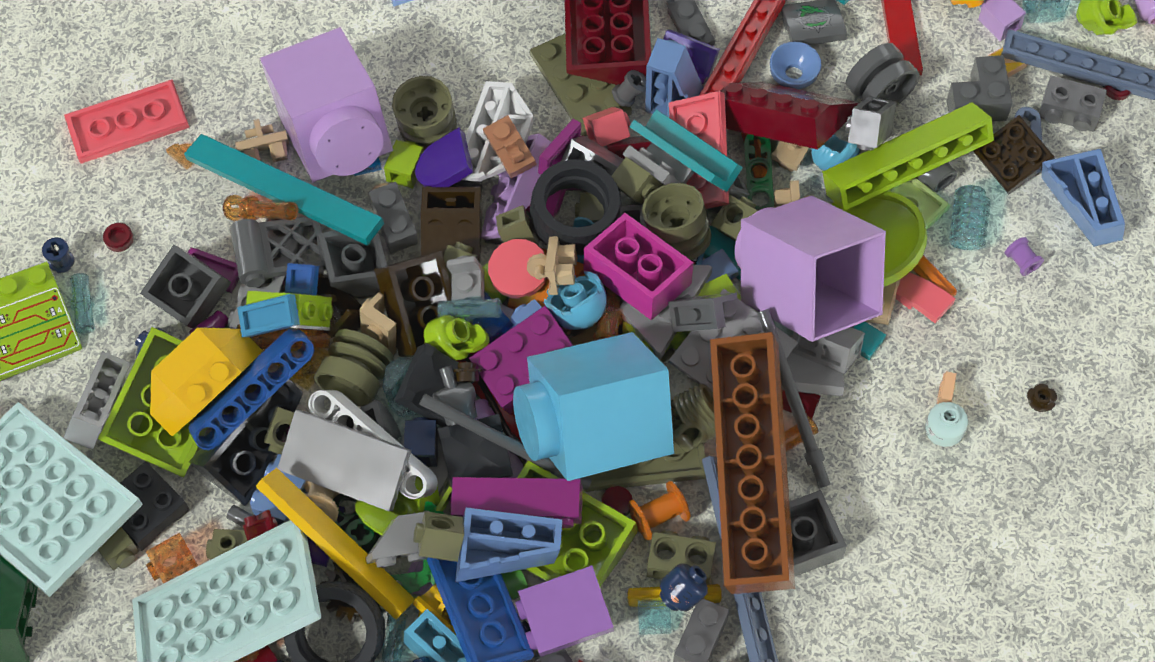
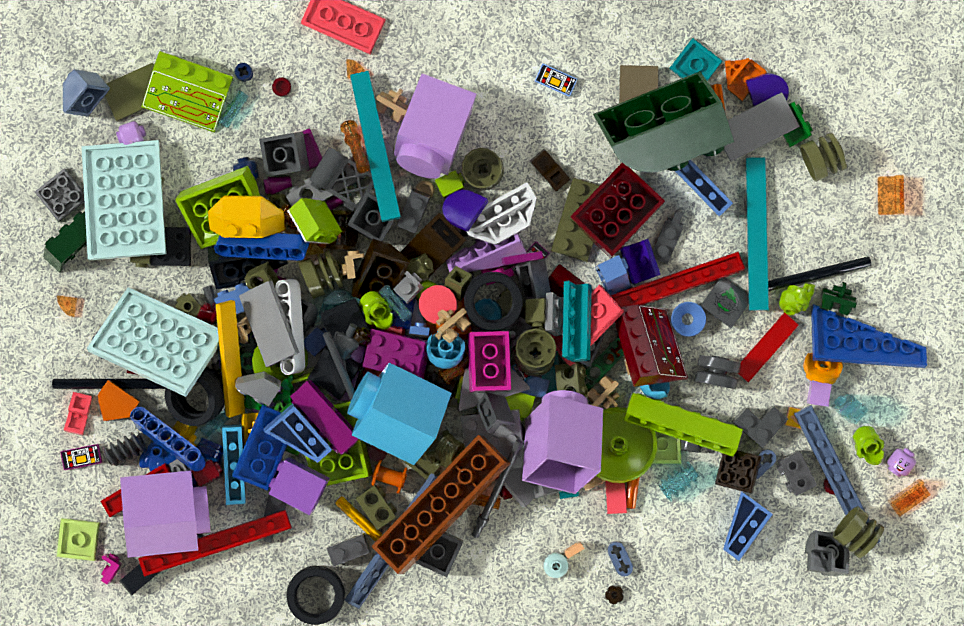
camera: 40 degrees right, 25 degrees up
(97, 400) = (192, 177): light grey brick -> none
(172, 547) = (168, 285): clear orange brick -> none
(268, 315) = (298, 222): dark azure tile -> none
(302, 279) = (337, 208): blue tile -> none
(439, 536) = (271, 407): olive brick -> none
(503, 66) = (550, 170): none -> dark brown slope
(509, 146) = (498, 234): nougat plate -> none
(607, 126) = (563, 262): coral brick -> none
(626, 92) = (593, 254): dark grey bush -> none
(653, 617) = (339, 520): clear light blue tile -> none
(683, 587) = (360, 524): dark blue head -> none
(871, 123) = (679, 394): flat silver brick -> none
(1003, 356) = (624, 556): none -> sand blue beam
(1024, 256) = (683, 523): medium lavender bush -> none

